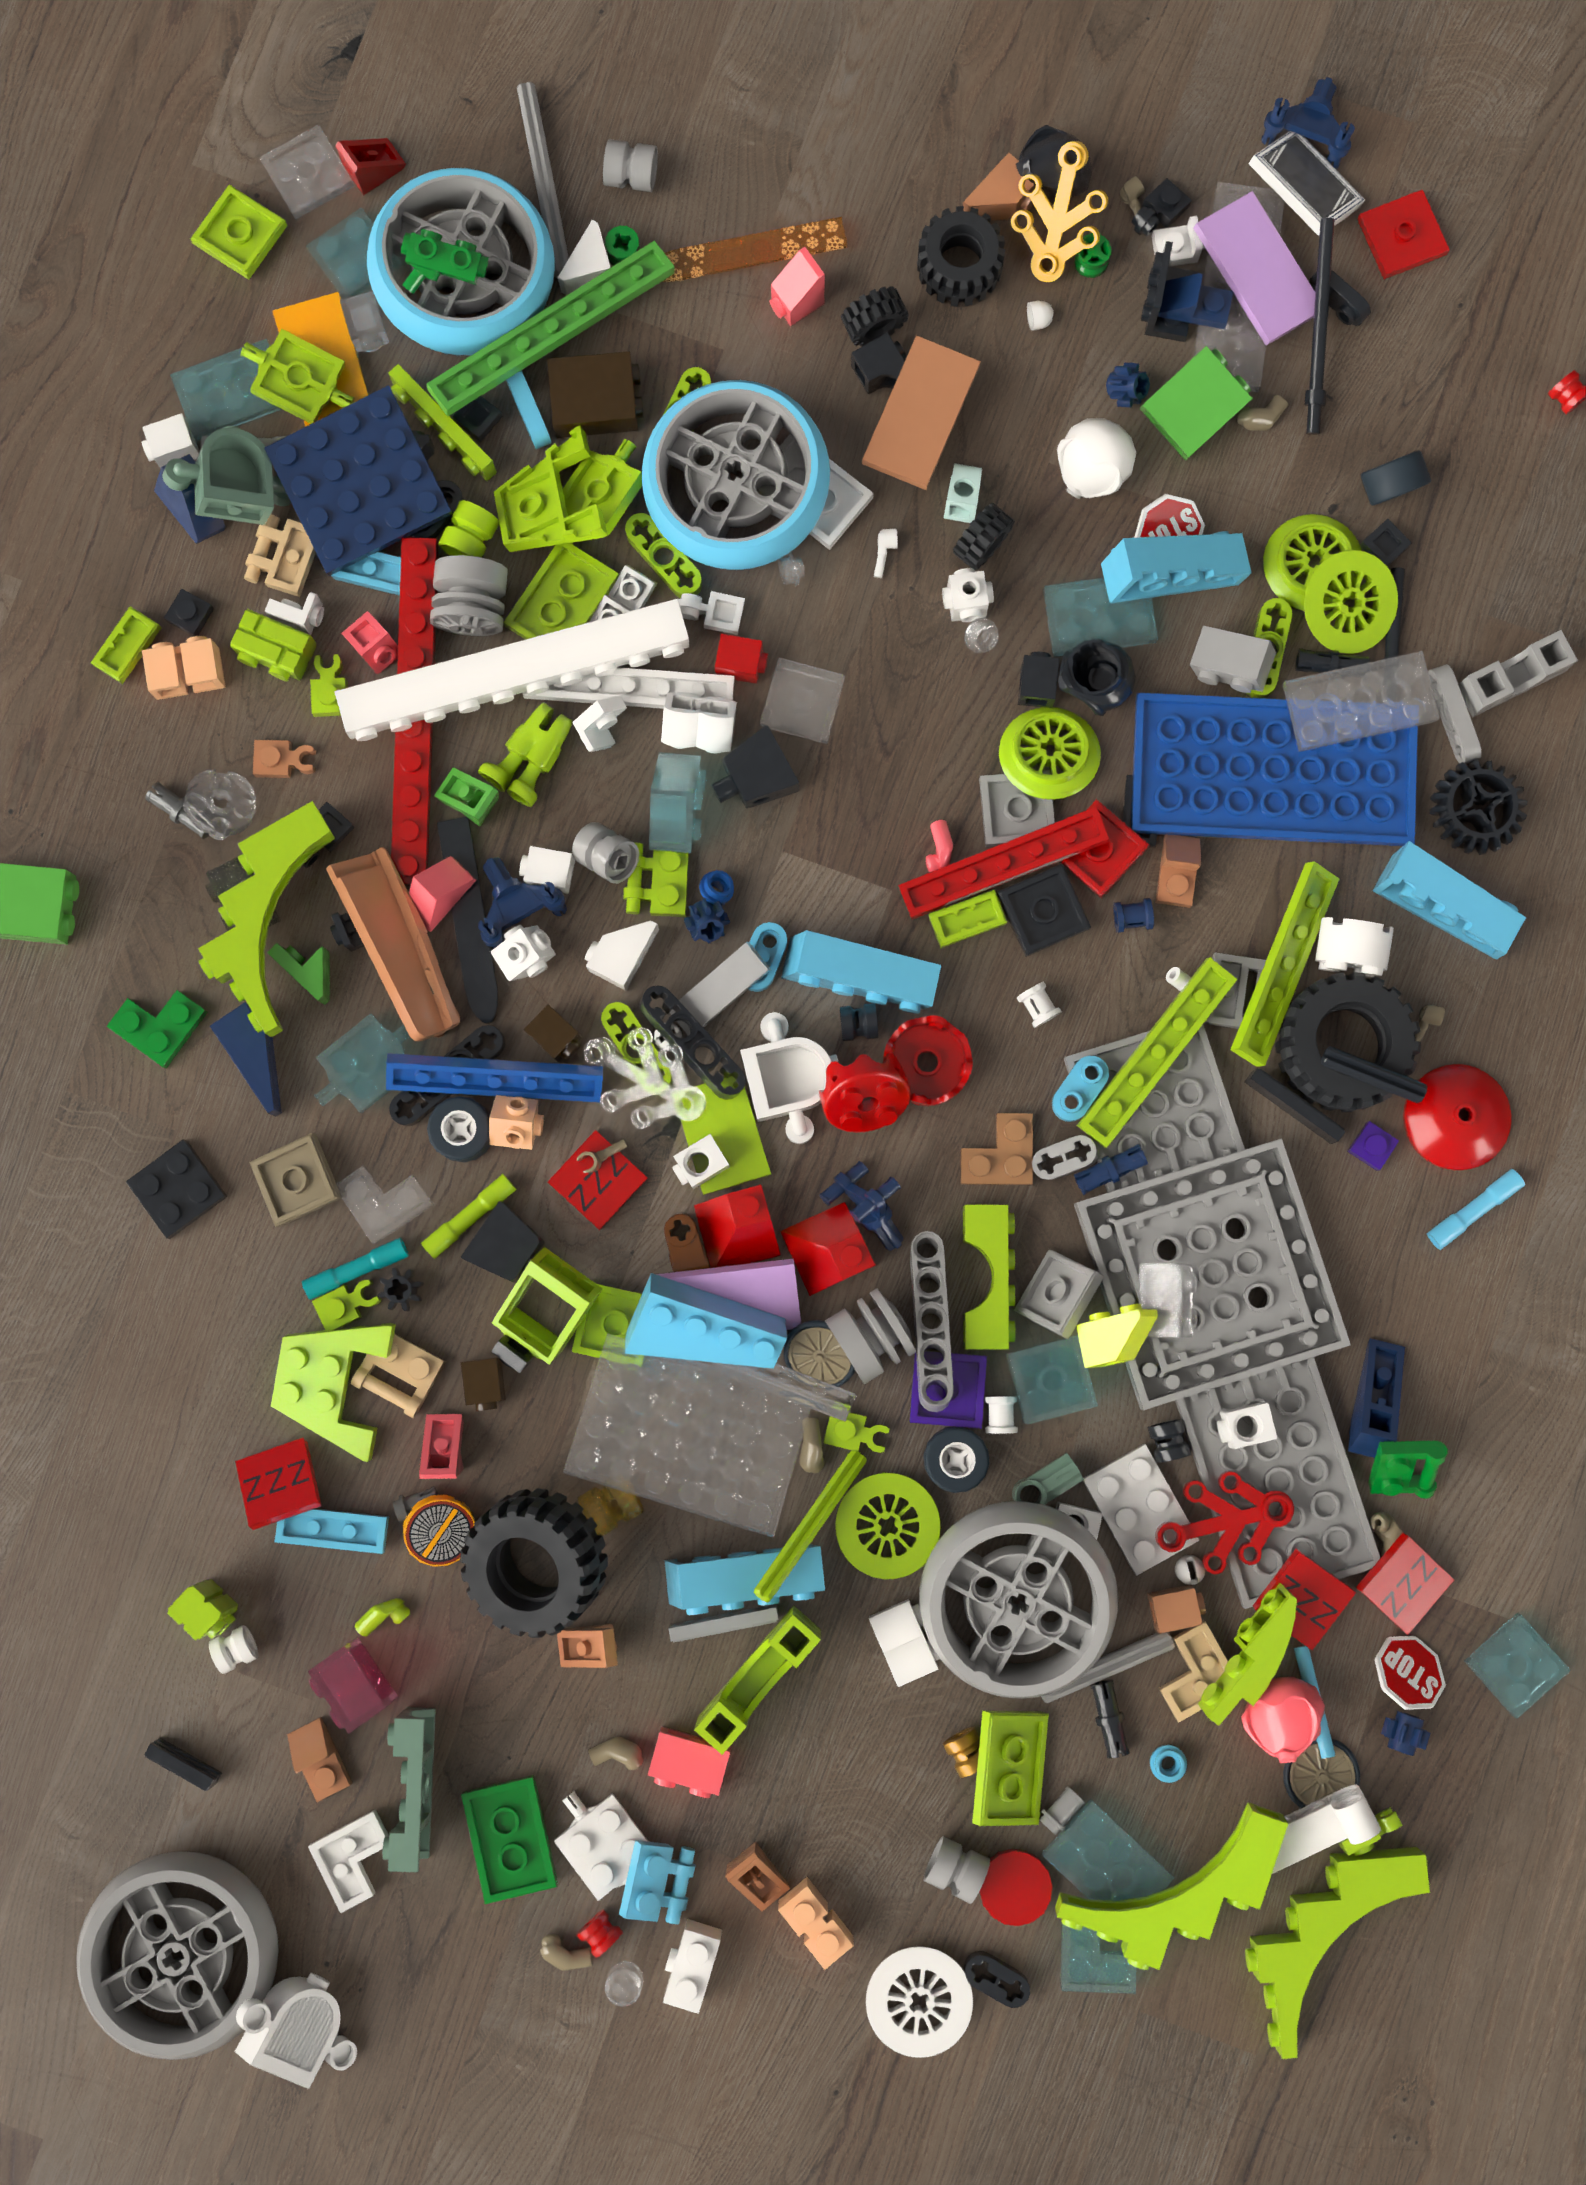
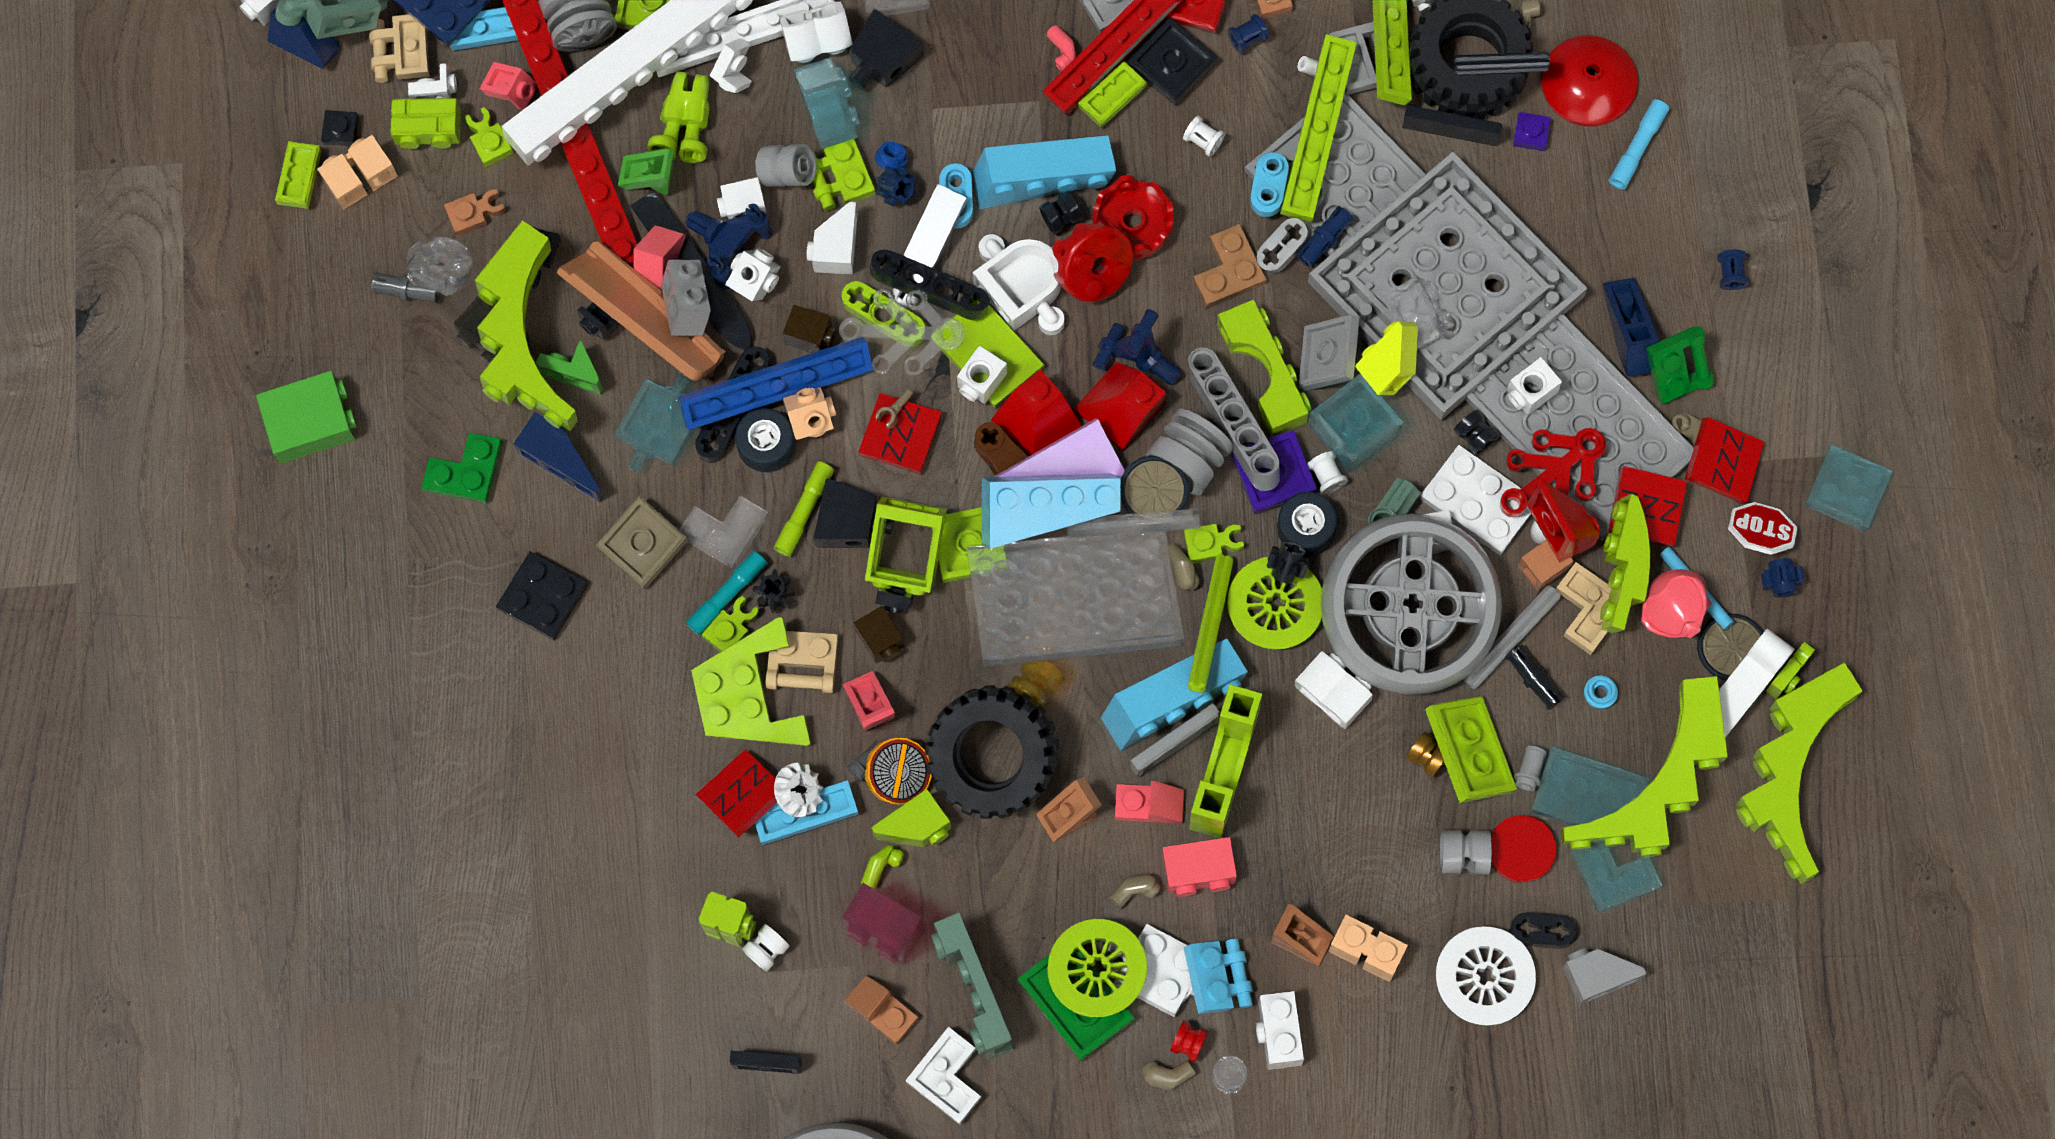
camera: 25 degrees left, 10 degrees down
(323, 1499) = (797, 803): none -> white gear
(433, 1591) = (914, 823): none -> lime slope
(442, 951) = (685, 297): none -> light grey brick
(500, 1835) = (1073, 940): none -> lime piece
(671, 1672) = (1149, 803): none -> coral slope
(916, 1497) = (1288, 562): none -> black gear
(1031, 2054) = (1599, 974): none -> light grey slope
(1210, 1591) = (1563, 522): none -> red slope
(1518, 1379) = (1738, 279): none -> dark blue bush

